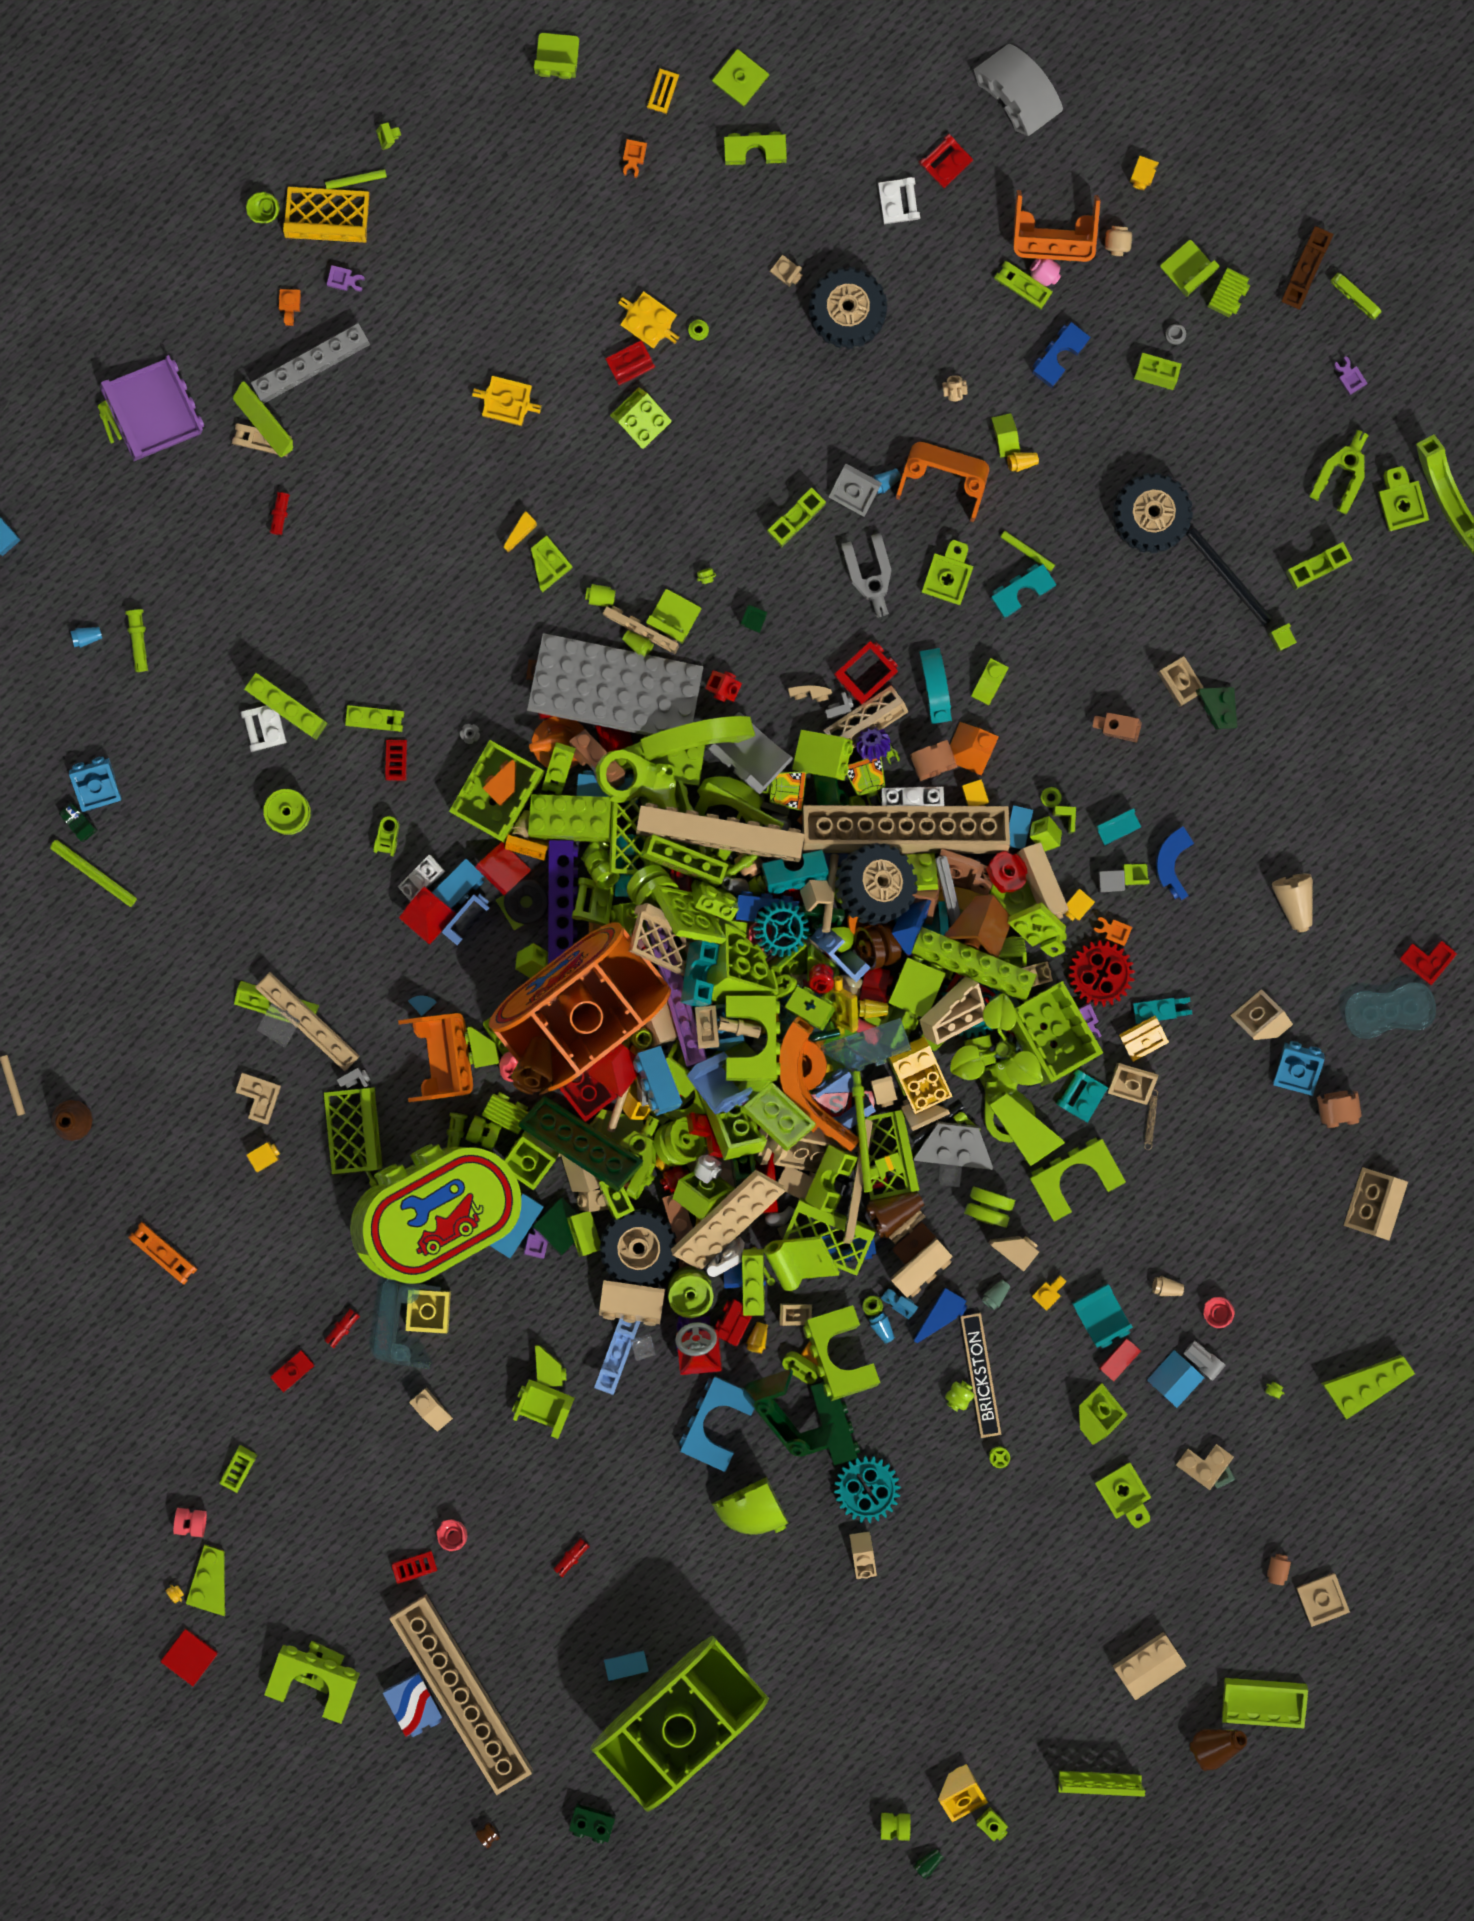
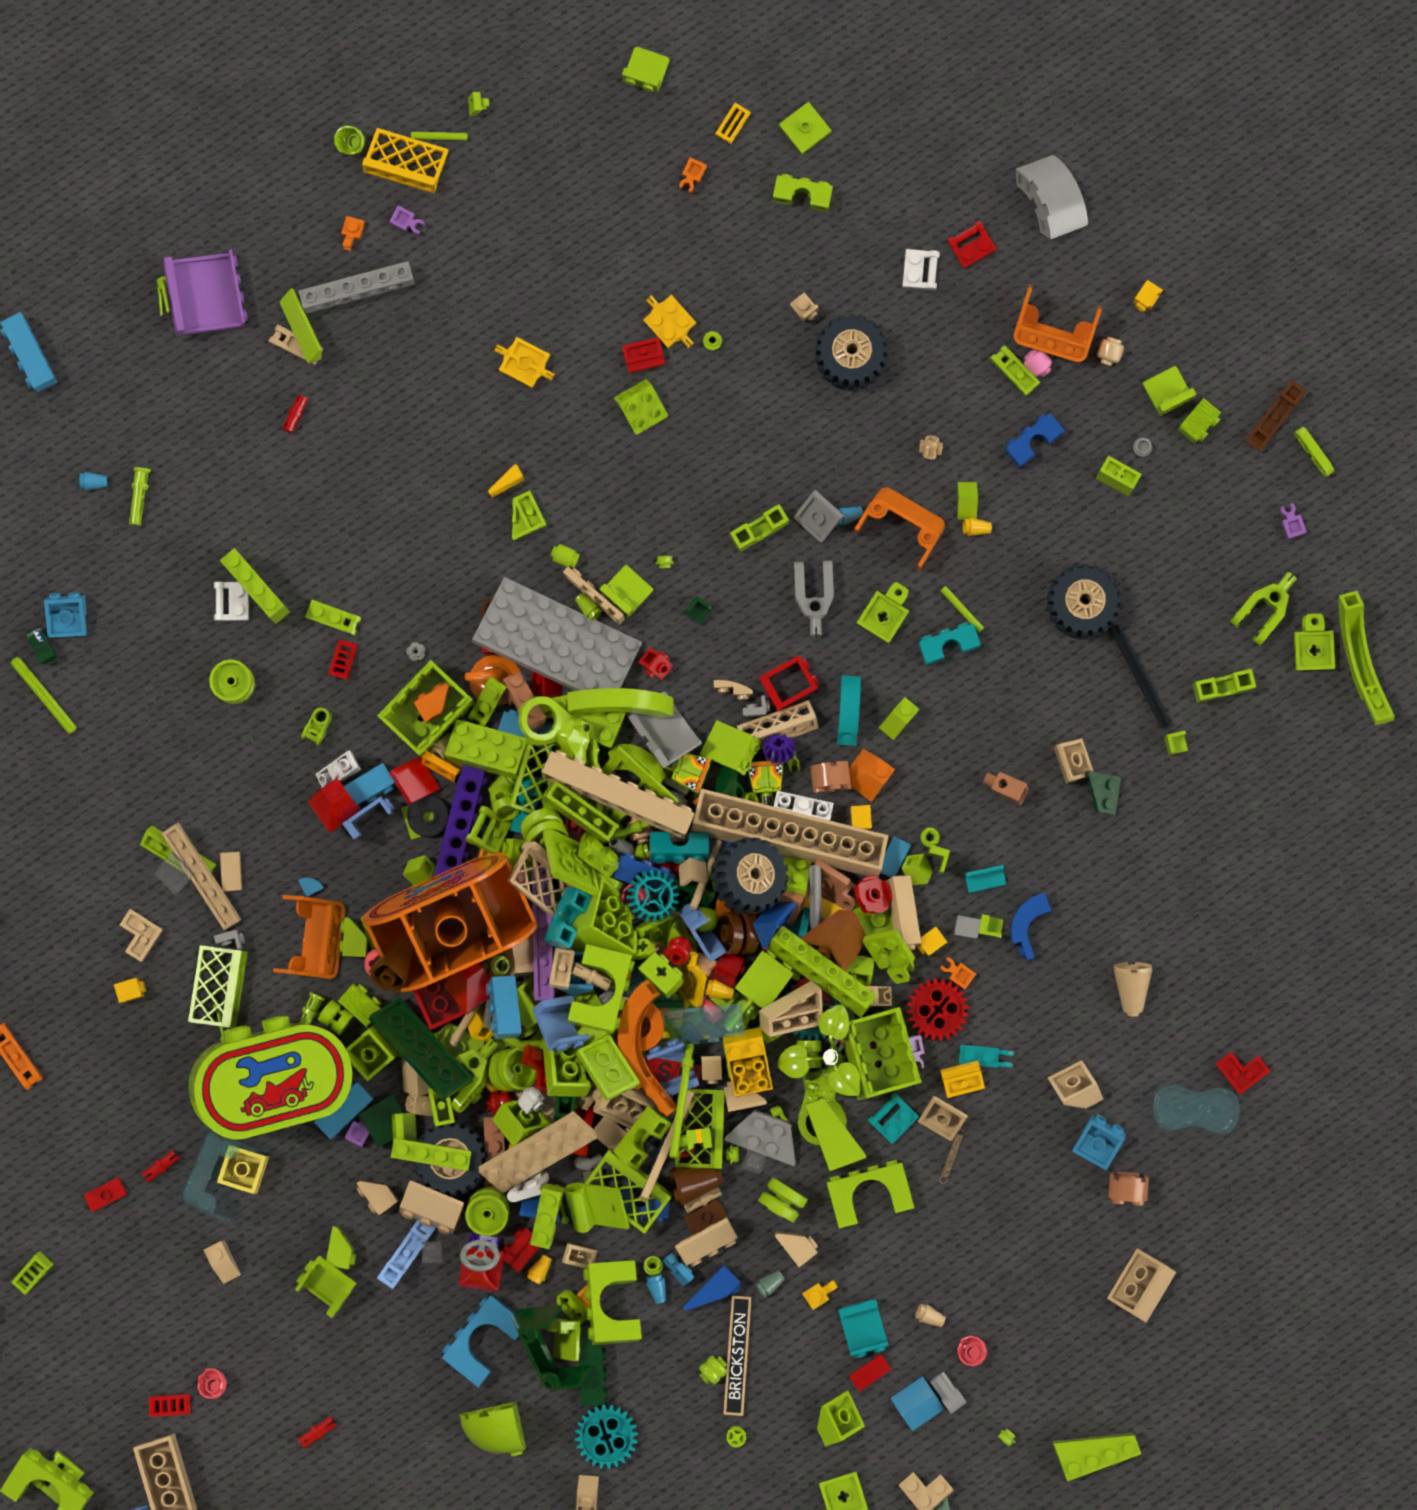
camera: 15 degrees right, 5 degrees down
(336, 1008) = (231, 871): none -> tan tile
(574, 1303) = (379, 1195): none -> tan slope
(618, 1248) = (431, 1154): none -> lime plate
(803, 1402) = (566, 1339): none -> lime bracket
(926, 1173) = (732, 1154): none -> lime plate

